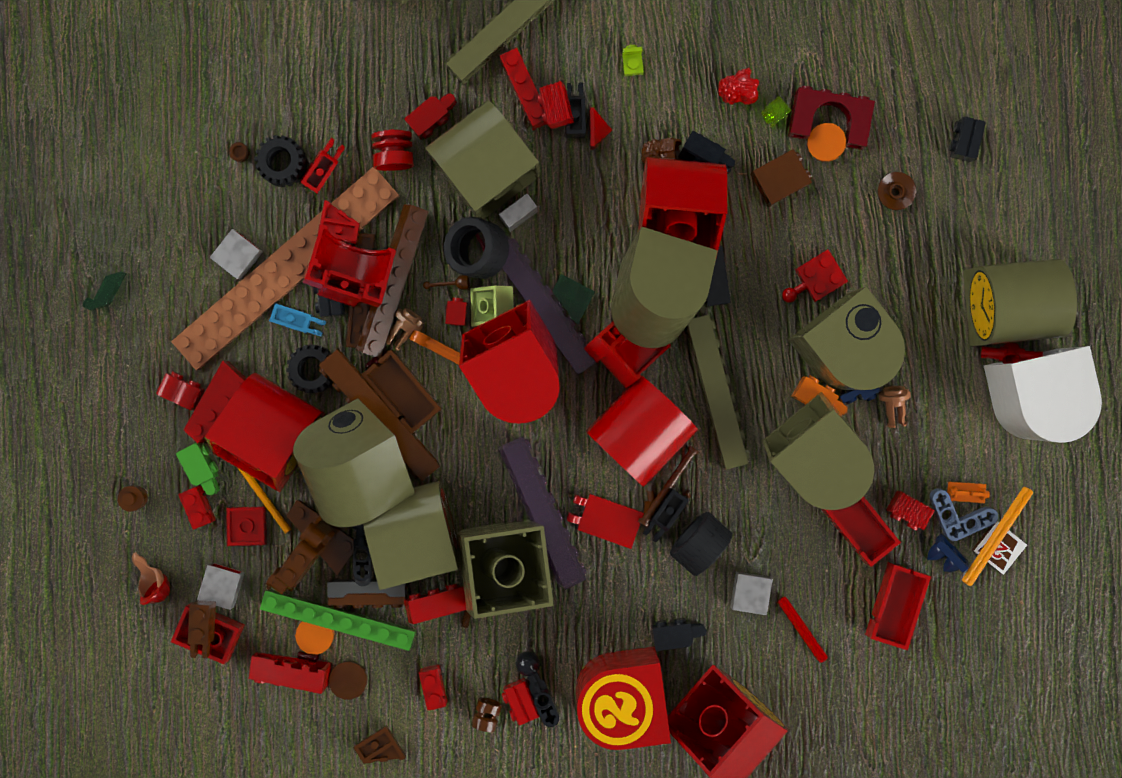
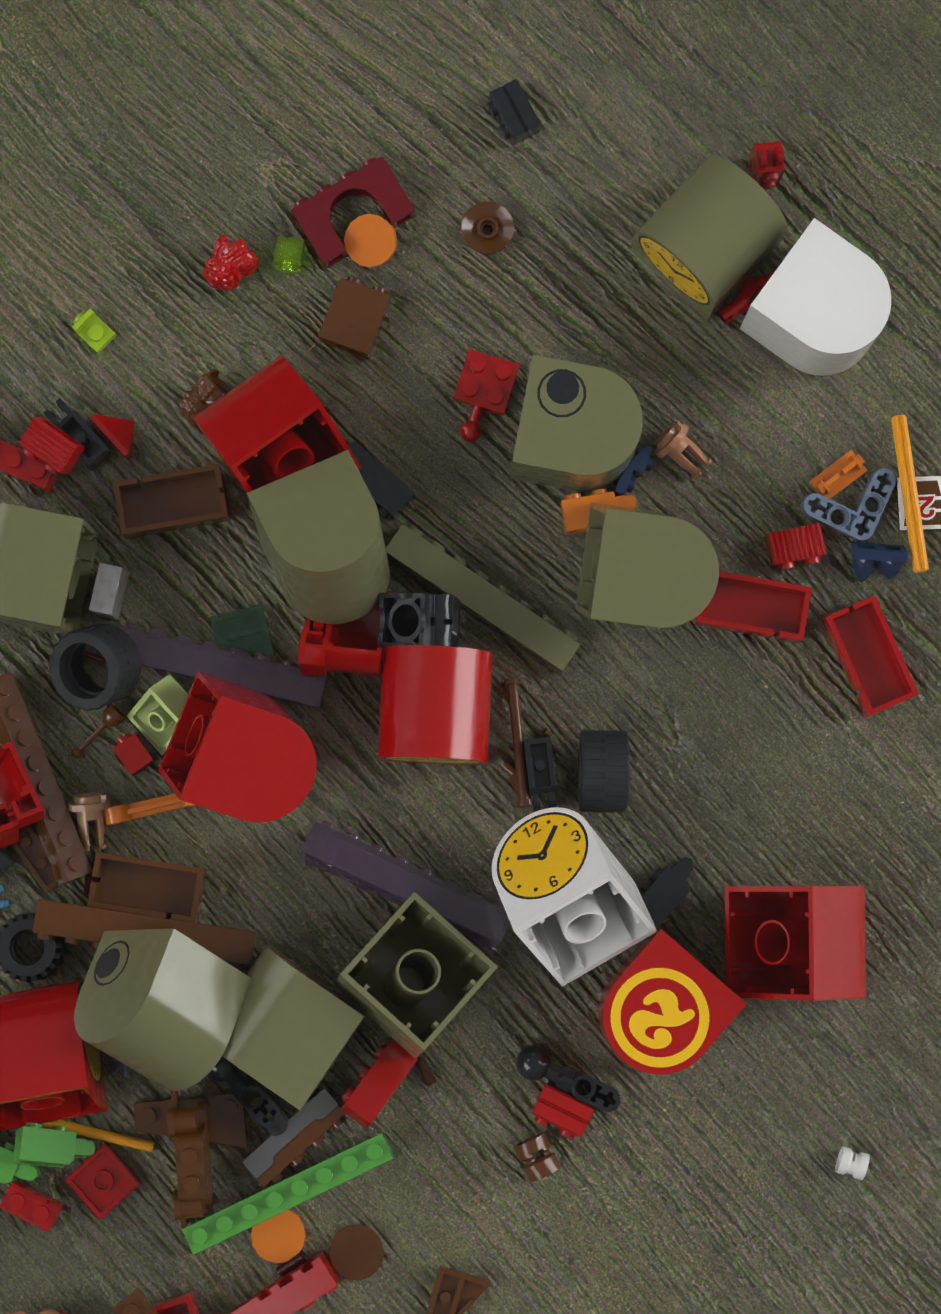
camera: 40 degrees left, 5 degrees down
(221, 585) = (130, 1267): flat silver piece -> none
(231, 485) = (49, 1146): none -> bright green hinge
(433, 687) = (454, 1177): red brick -> none
(594, 192) = (171, 501): none -> reddish brown piece
(607, 520) = (477, 834): red tile -> none
(625, 596) = (567, 893): none -> white brick
(672, 376) = (418, 619): none -> black piece
(704, 150) = (245, 359): black hinge -> none
(751, 593) = (706, 779): flat silver piece -> none
(802, 629) = (794, 770): red axle -> none
(1087, 288) = (767, 164): none -> red hinge

